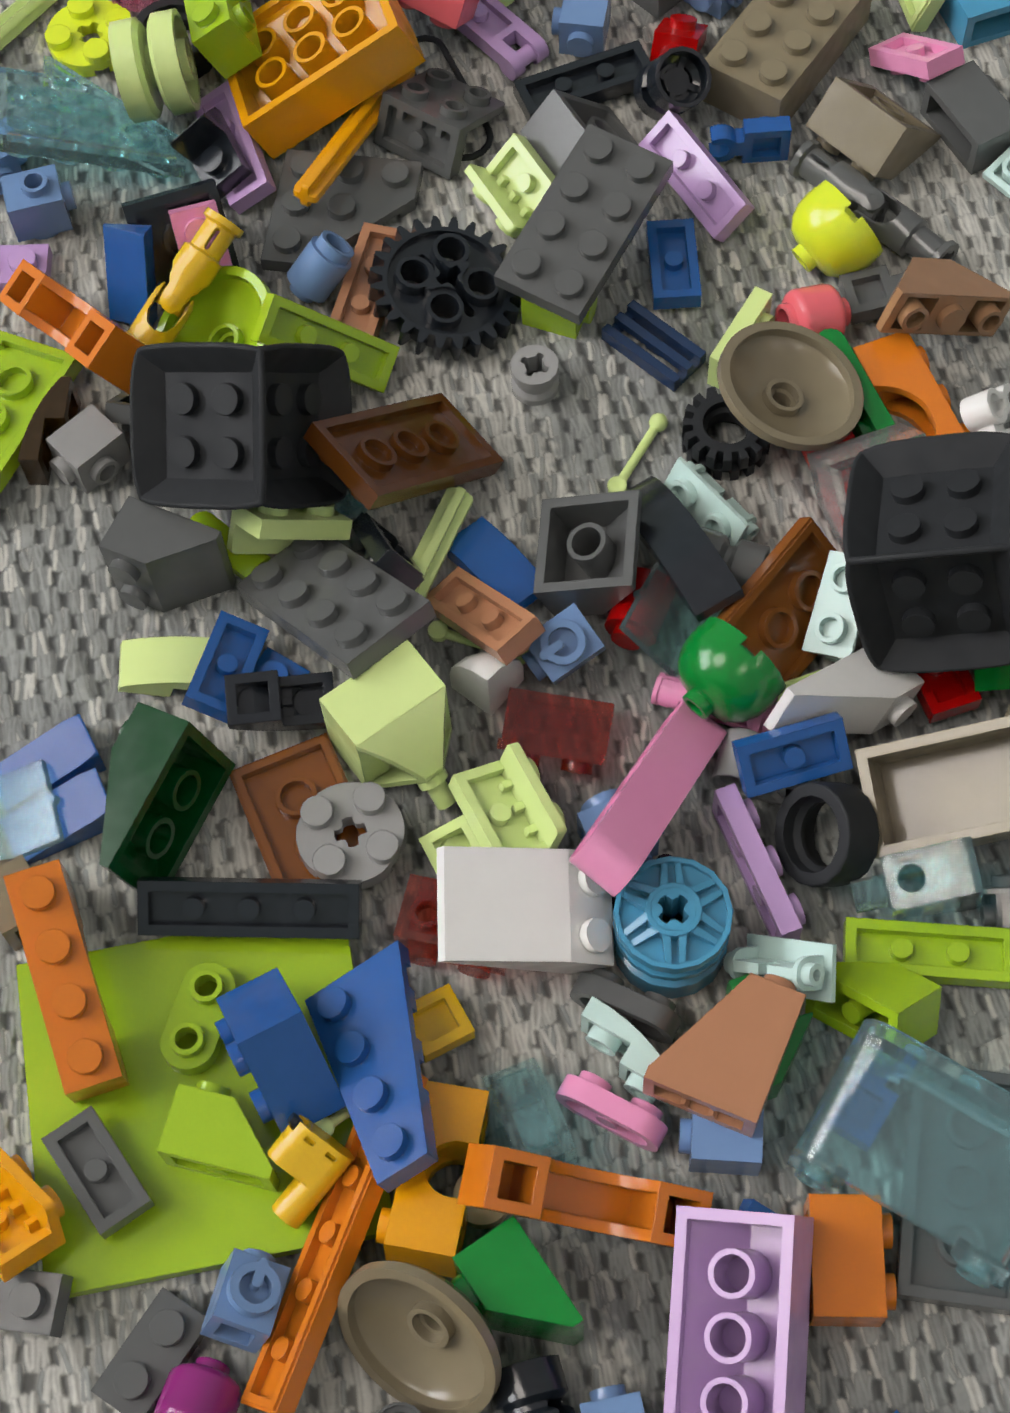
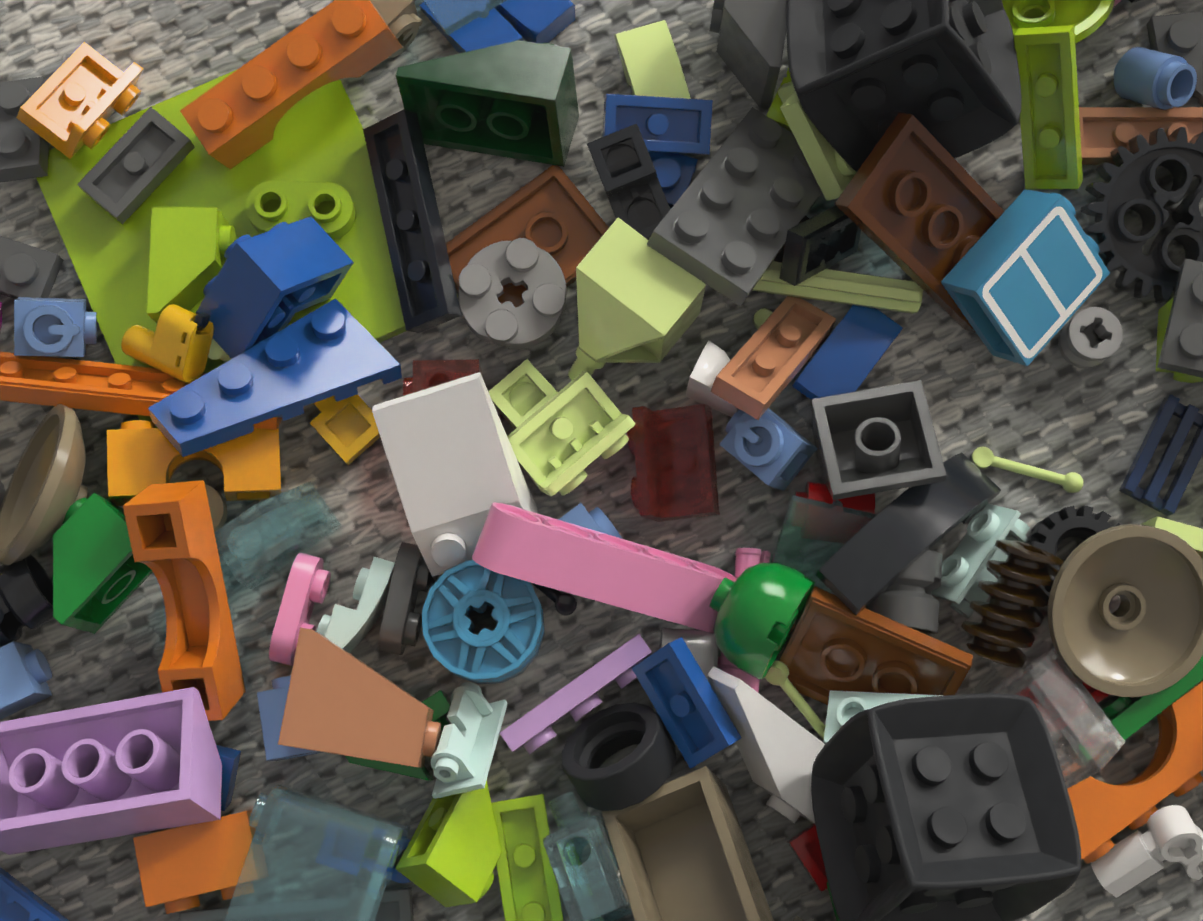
camera: 70 degrees right, 15 degrees up
(469, 401) = (1026, 276): none -> dark azure brick
(758, 480) = (1012, 603): none -> dark brown piece

